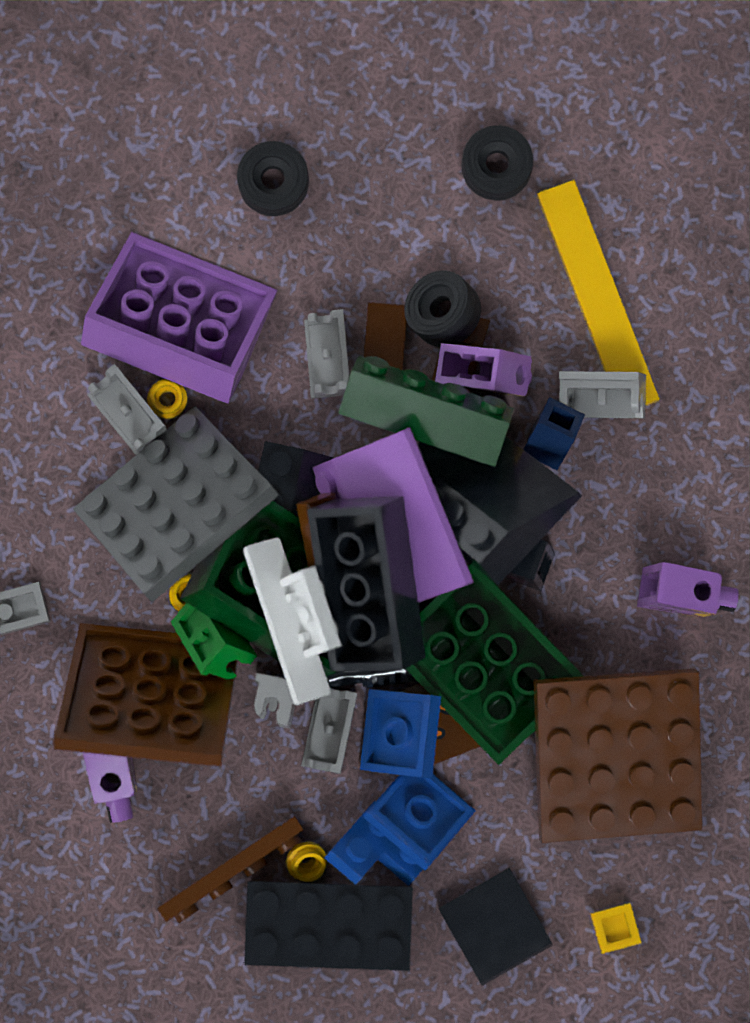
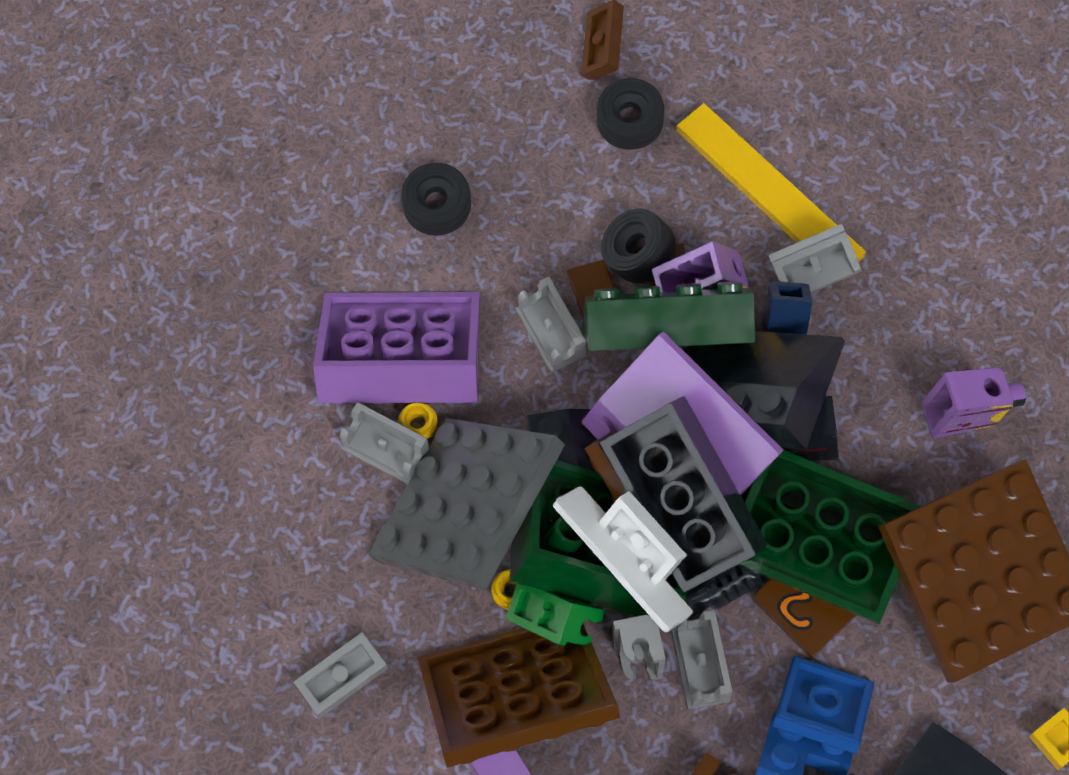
camera: 20 degrees left, 15 degrees down
(400, 733) = (772, 633): blue plate -> none
(503, 72) = (602, 40): none -> reddish brown plate

